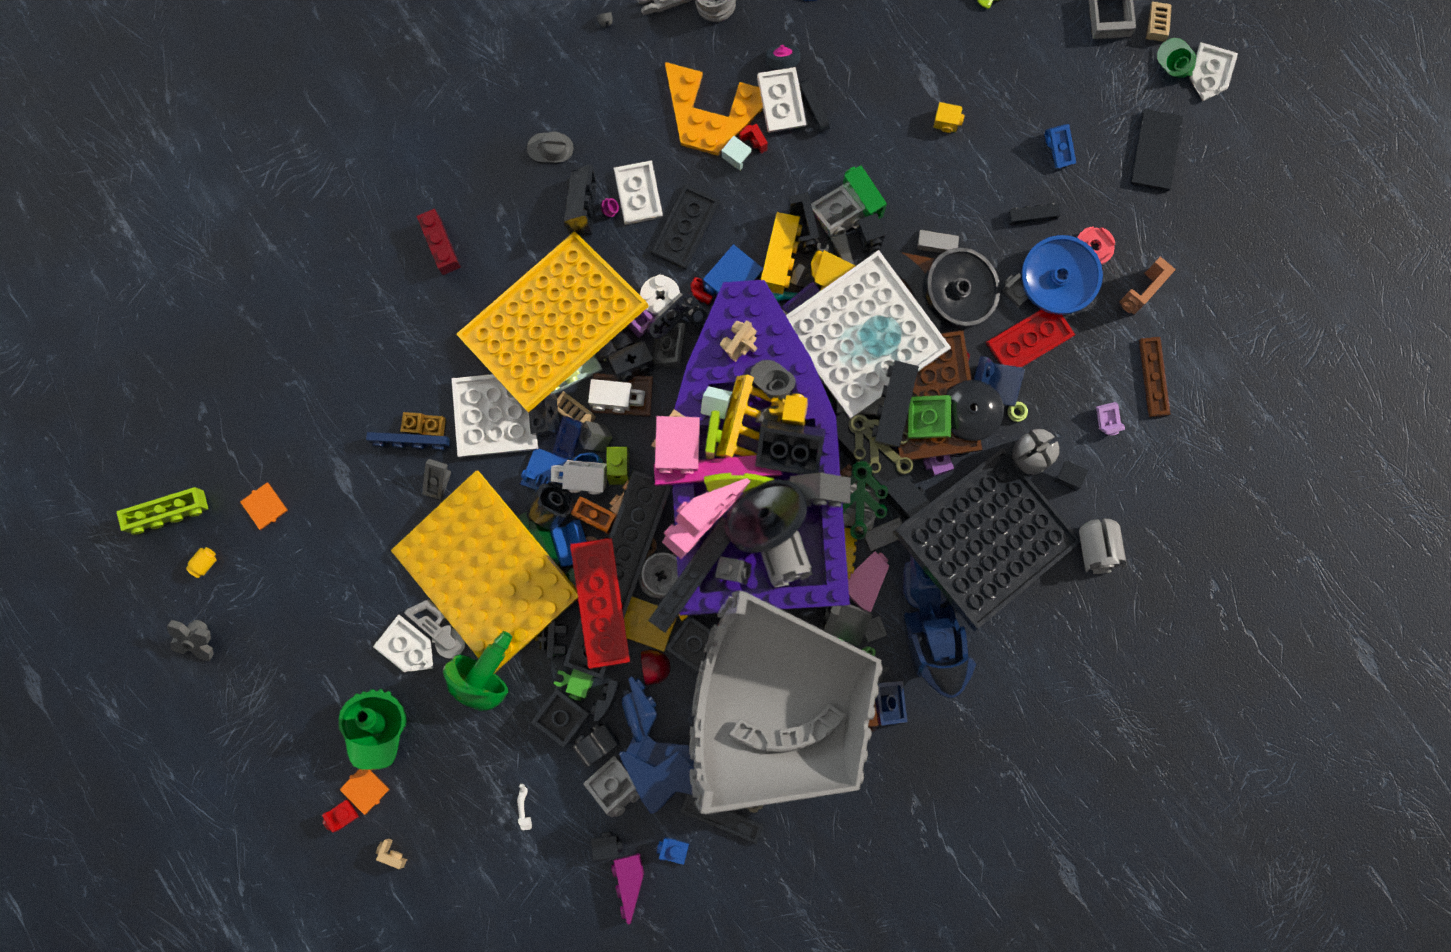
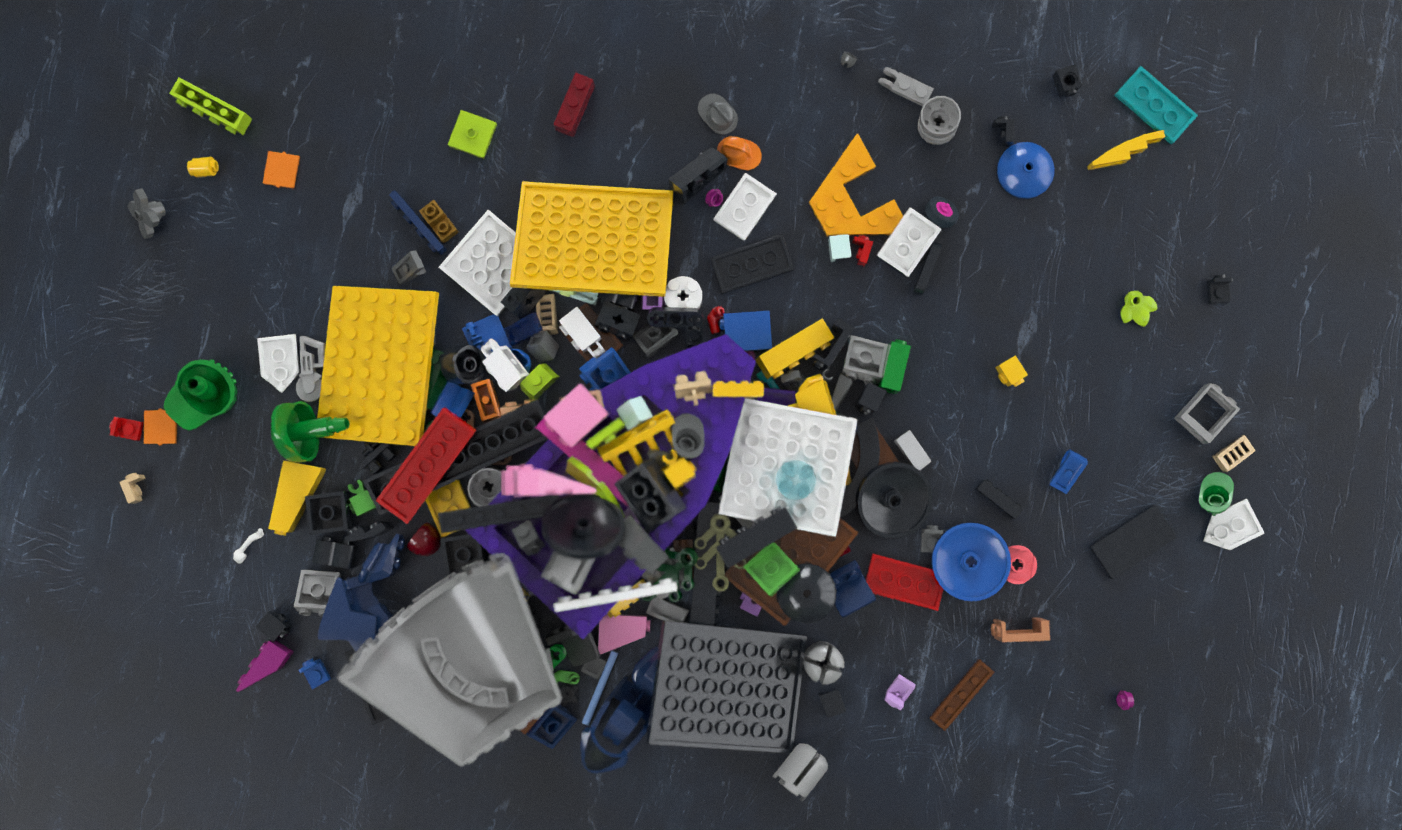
camera: 45 degrees right, 5 degrees up
(383, 337) = (472, 134): none -> lime plate
(514, 726) = (294, 484): none -> yellow slope
(600, 155) = (740, 152): none -> orange piece
(659, 401) = (603, 370): none -> blue plate
(774, 310) = (735, 389): none -> yellow piece
(835, 552) = (606, 596): none -> white plate
(894, 640) = (600, 687): none -> light blue bar
(1017, 418) = (849, 622): yellowish green plate -> none
(1269, 262) = (1125, 700): none -> magenta plate

